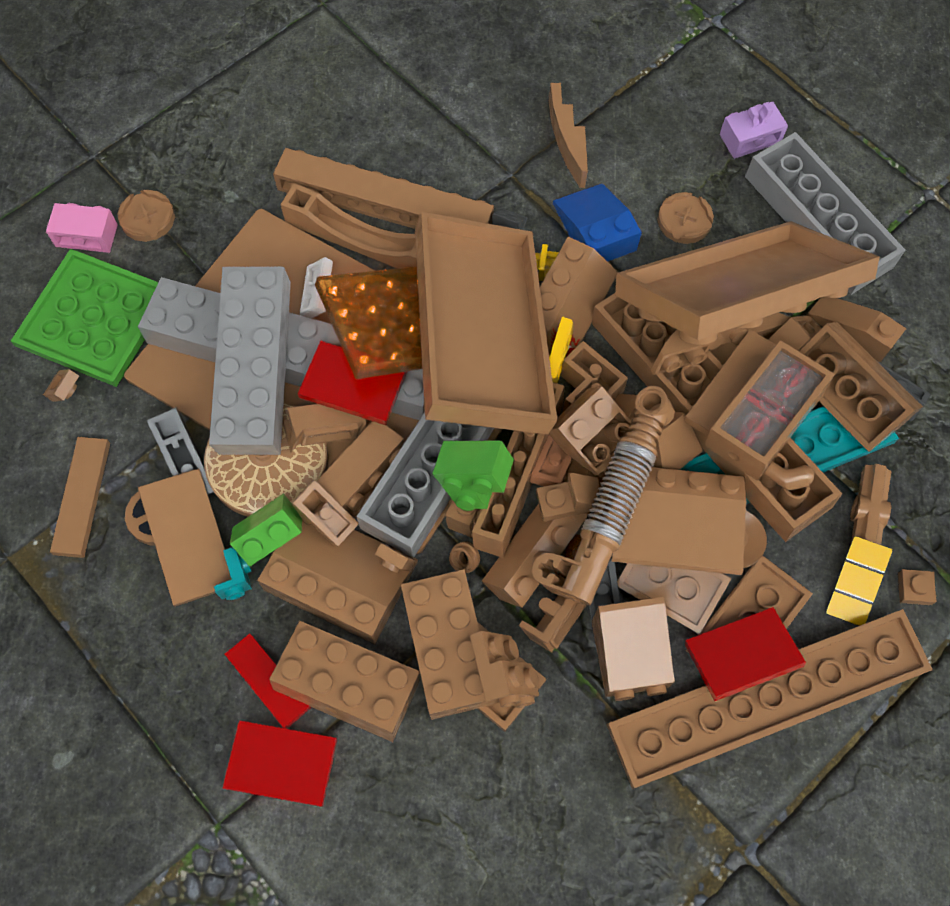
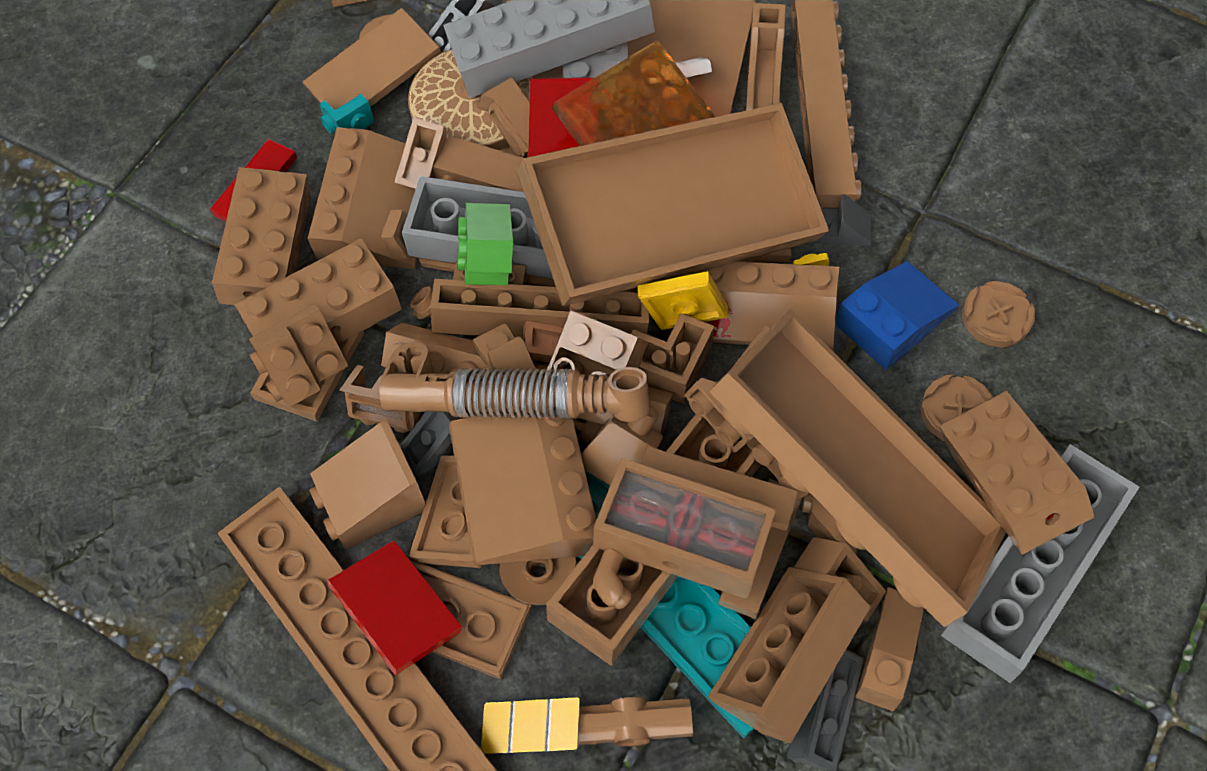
camera: 75 degrees right, 5 degrees down
(266, 530) = (387, 116): bright green brick -> none
(280, 763) = (177, 220): red tile -> none
(569, 138) = (999, 249): medium nougat slope -> none
(618, 163) = (998, 314): none -> medium nougat tile
(753, 129) = (1131, 448): lavender brick -> none
(767, 194) = (1017, 472): none -> medium nougat brick

